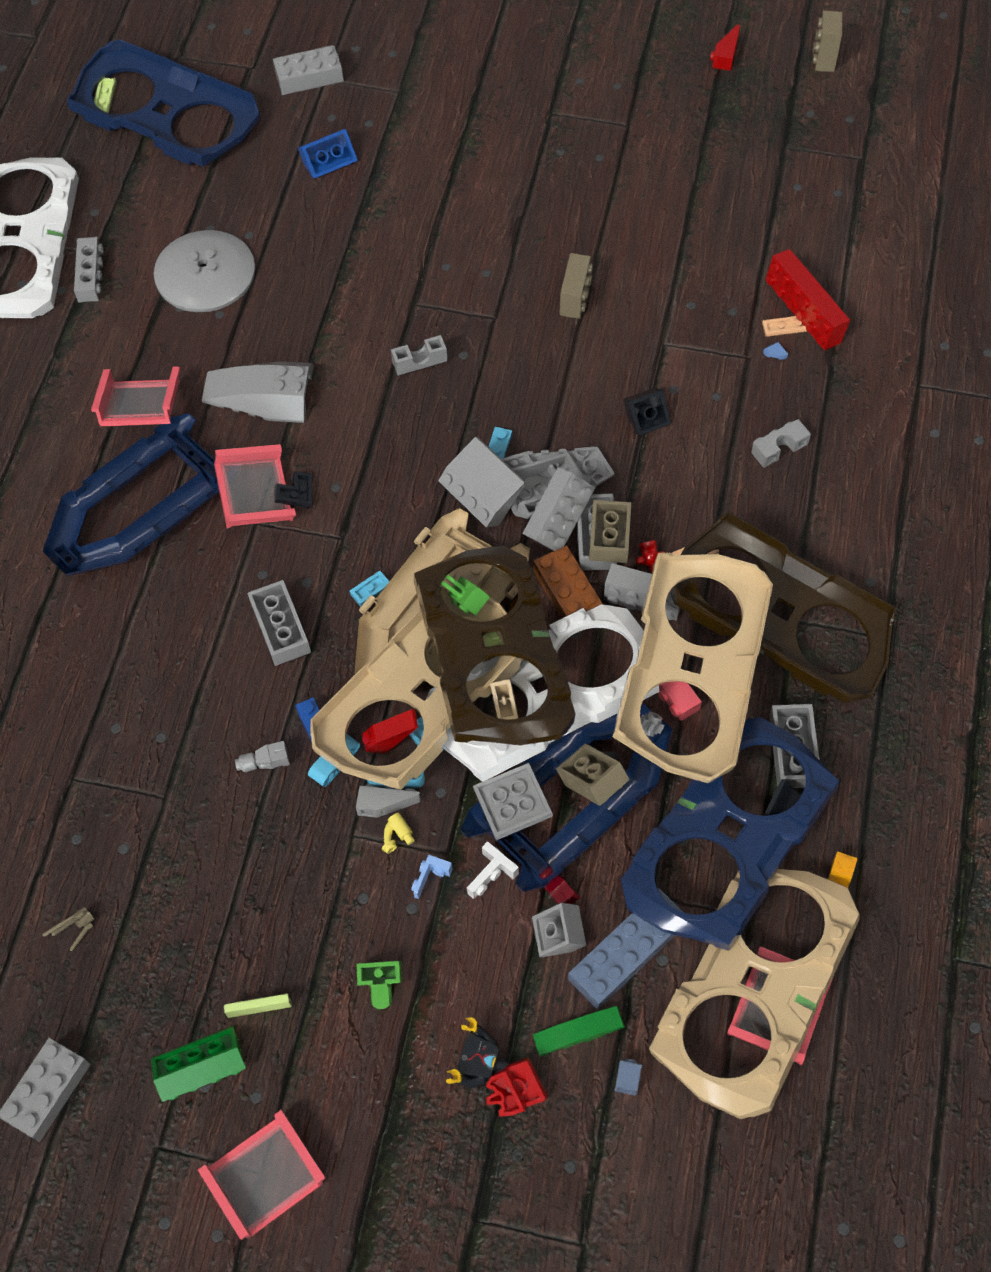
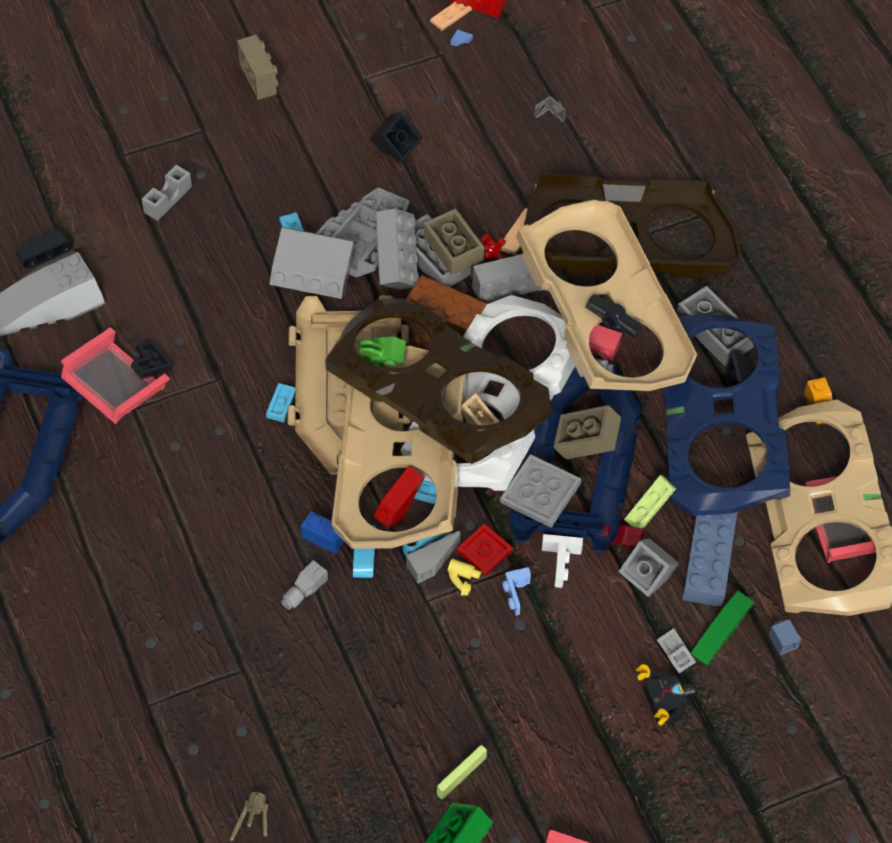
camera: 40 degrees left, 5 degrees down
(279, 622) = (228, 472): light grey brick -> none
(290, 349) = (43, 248): none -> black beam
(379, 977) = (543, 687): bright green brick -> none
(432, 822) = (484, 549): none -> red plate
(516, 1088) = (711, 697): red plate -> none
(523, 1024) = (676, 651): none -> light grey slope
(600, 874) = (650, 503): none -> yellowish green tile
(686, 682) = (613, 315): none -> black piece
(792, 435) = (526, 95): light grey arch -> none
(806, 454) = (552, 105): none -> clear bracket

